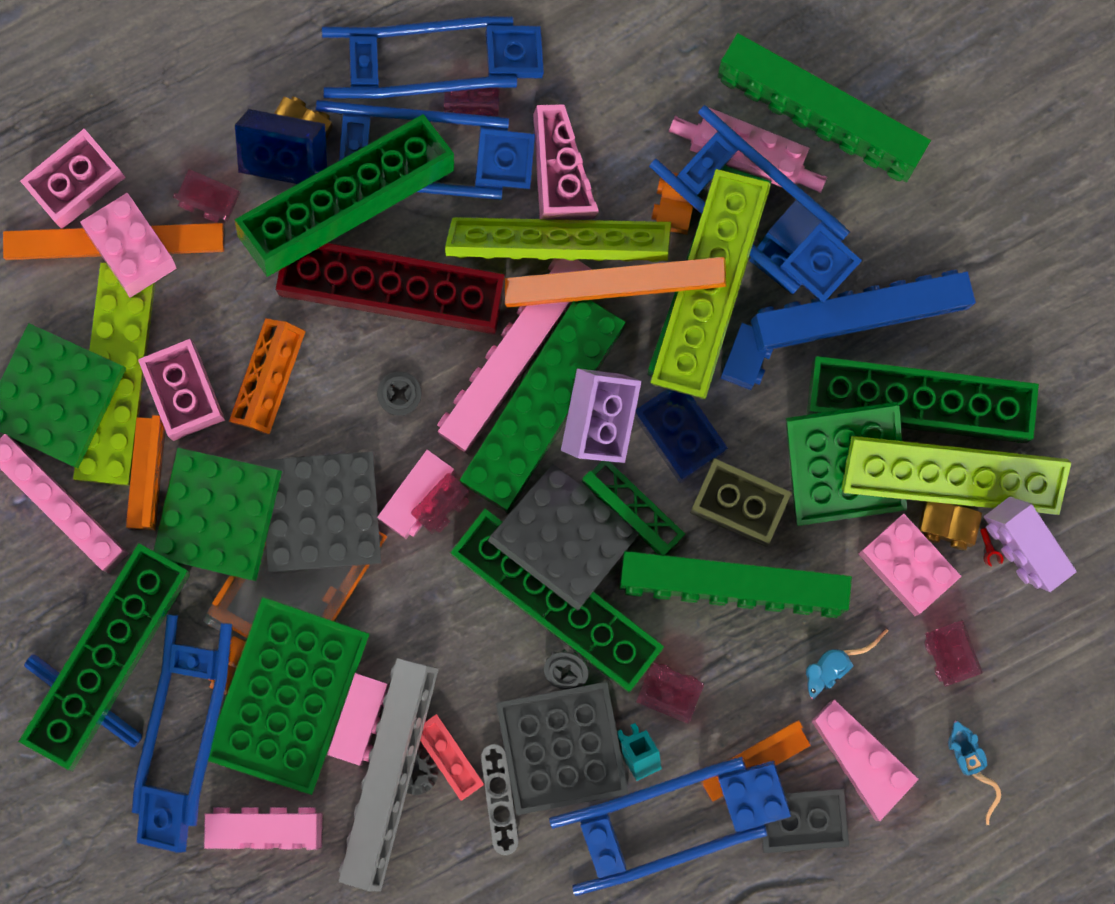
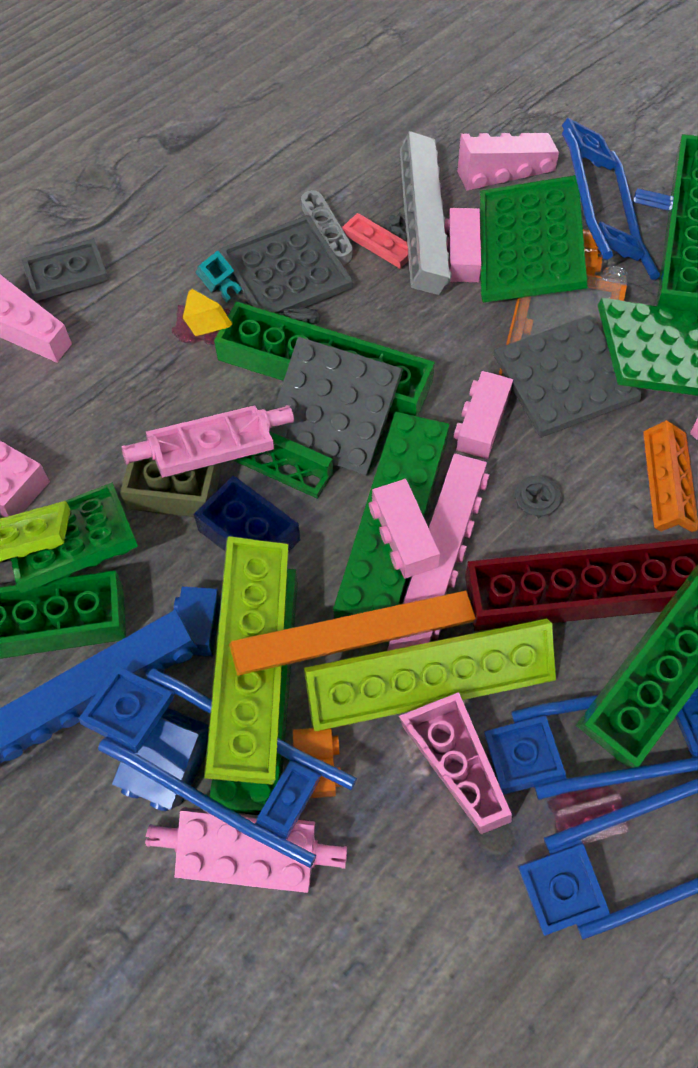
camera: 165 degrees right, 20 degrees down
(441, 503) = (459, 403): clear pink bracket -> none
(543, 367) = (404, 529): none -> bright pink brick
(601, 415) = (330, 510): lavender brick -> none
(668, 681) = (204, 314): none -> yellow slope
(696, 517) = (209, 439): none -> bright pink plate
(735, 583) = (125, 413): green brick -> none
(752, 797) = (115, 259): blue plate -> none
(776, 747) = (117, 300): orange fence -> none
(822, 108) = (163, 921): green brick -> none
(833, 666) = (55, 379): dark azure animal -> none

